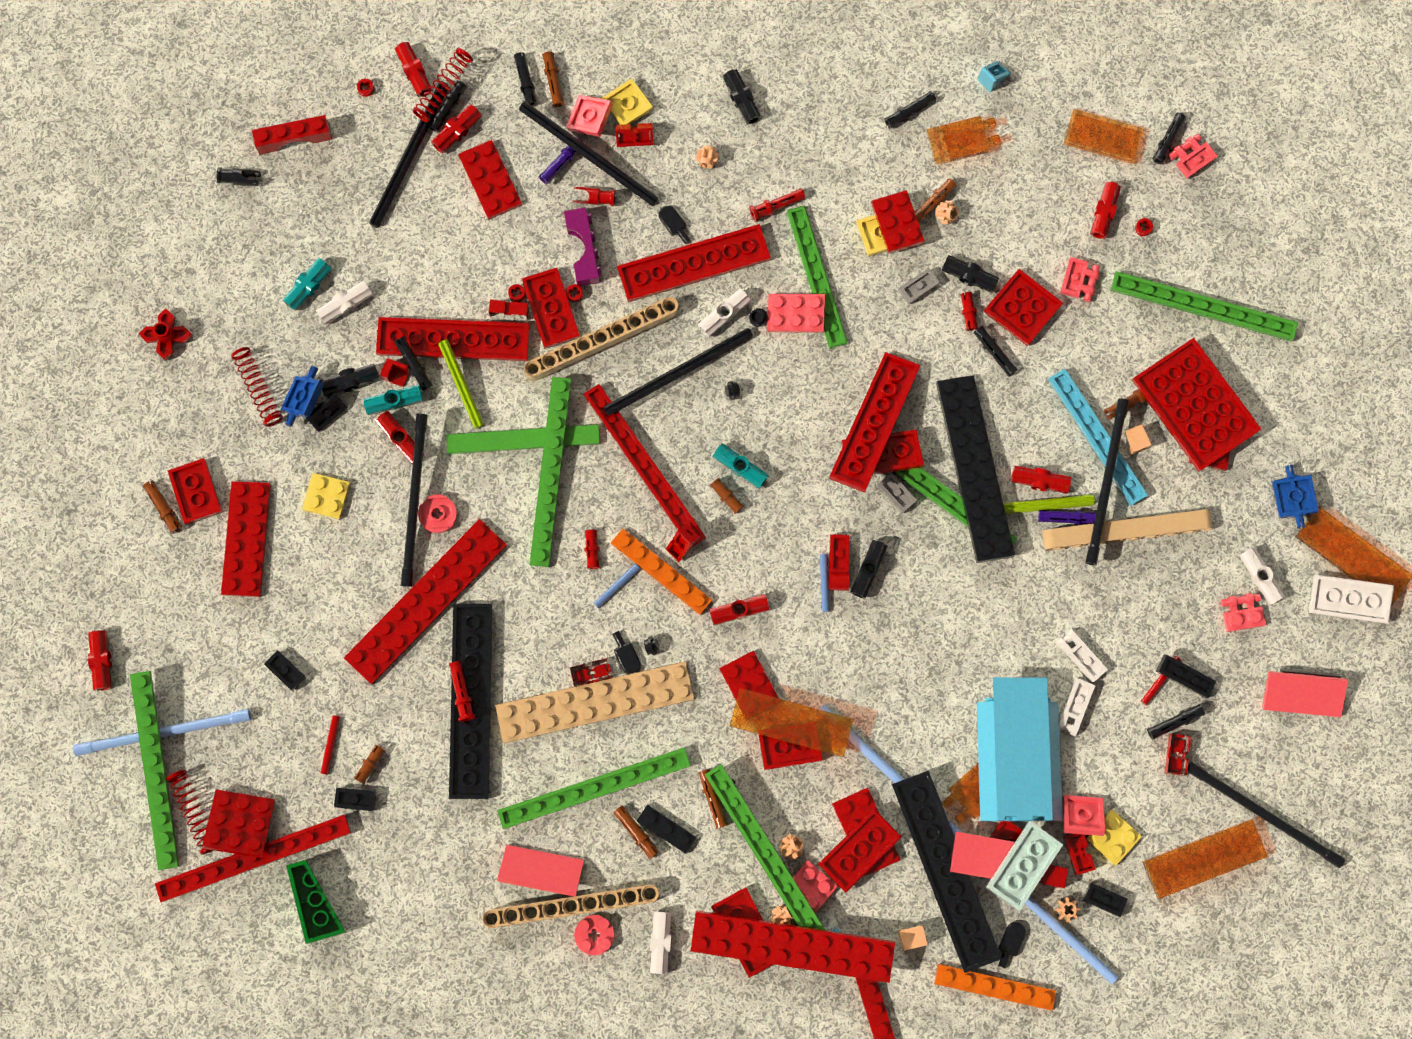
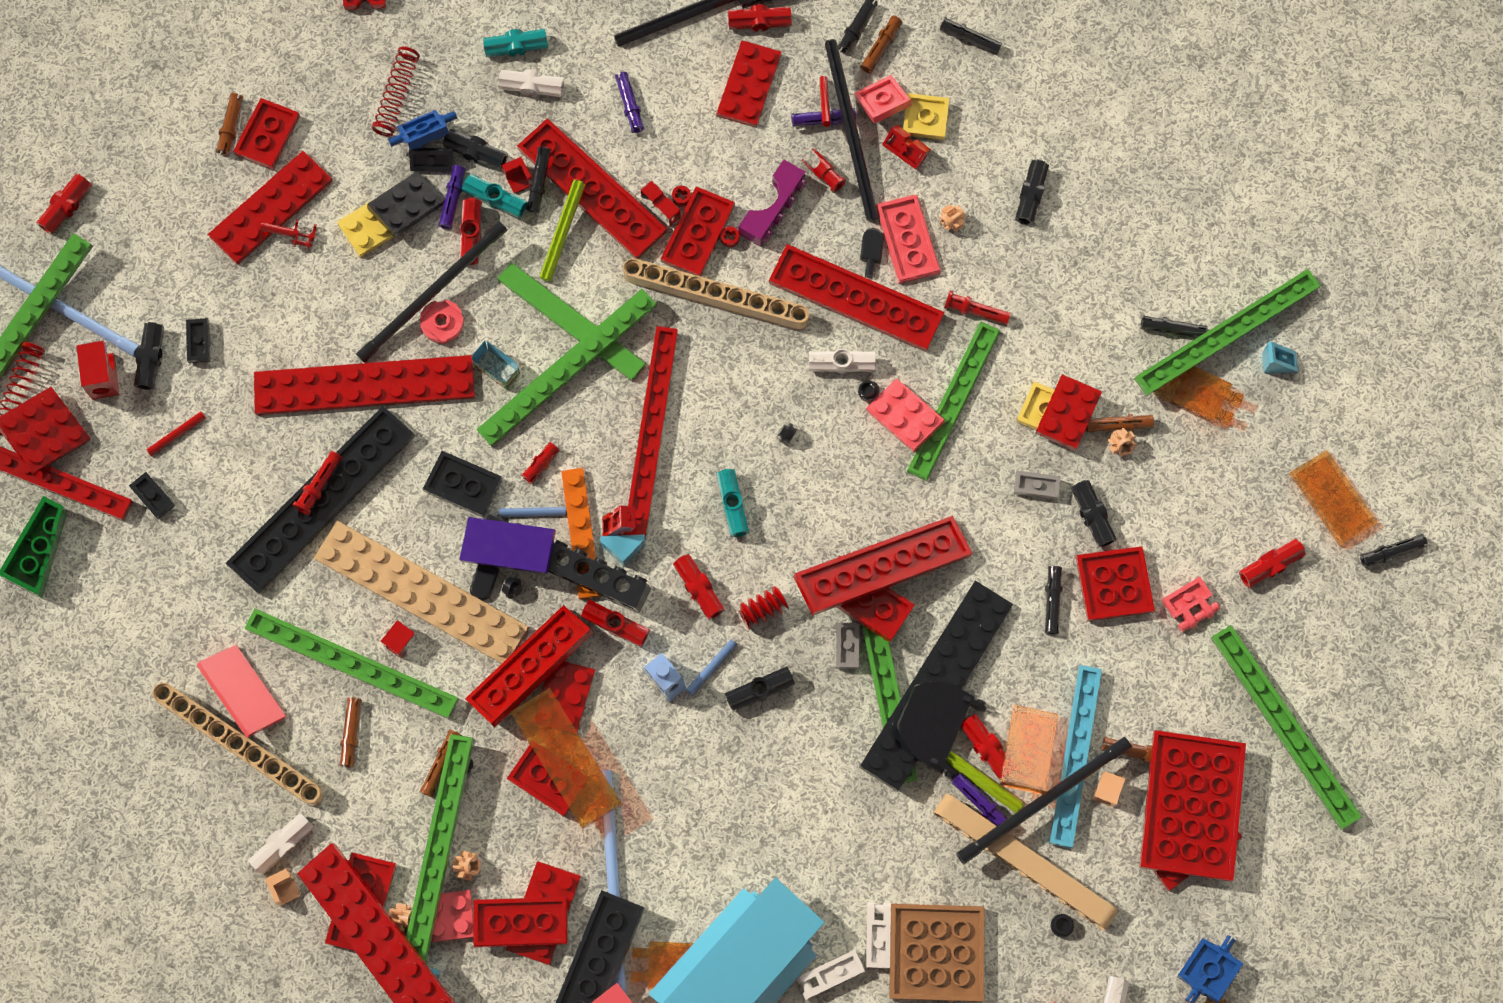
camera: 45 degrees right, 5 degrees down
(238, 750) = (97, 370): none -> red piece
(261, 710) = (148, 356): none -> black piece
(278, 543) = (290, 233): none -> red piece
(338, 457) = (405, 204): none -> black plate
(353, 406) = (454, 189): none -> dark purple pin
(369, 764) = (190, 477): dark orange pin -> none
(429, 263) = (632, 110): none -> dark purple pin
(500, 502) = (482, 350): none -> medium azure piece
(553, 149) = (825, 107): none -> red bar
(554, 608) = (462, 483): none -> black plate
(587, 944) = (247, 785): coral plate -> none
(600, 671) = (432, 562): red piece -> none
(606, 24) = (970, 35): none -> black pin
(607, 624) = (632, 598): none -> black brick
(610, 744) = (397, 639): none -> red panel
(626, 621) = (507, 545): none -> dark purple tile
(666, 829) = (378, 753): black plate -> none
(678, 372) = (755, 377): black axle -> none
(688, 968) = (283, 887): none -> light nougat panel
(690, 195) = (907, 239): none -> coral tile
(698, 557) = (623, 547): none -> medium azure slope
(711, 686) = (529, 666): none -> red plate
(726, 495) = (697, 518): dark orange pin -> none
(769, 538) = (698, 586): none -> red piece
(802, 615) = (664, 677): none -> light blue torso
(821, 515) = (762, 607): none -> red piece
(839, 562) = (739, 660): red plate -> none
(947, 85) = (1227, 332): none -> bright green plate
(969, 311) = (1062, 545): red pin -> none
(996, 492) = (933, 721): none -> black piece
(1068, 458) = (1029, 749): none -> clear orange tile
(1126, 634) = (937, 952): none -> medium nougat plate
(1138, 229) = (1288, 606): red bush -> none
(1183, 549) = (1062, 925): none -> black plate
(1194, 161) = (1401, 591): coral plate -> none

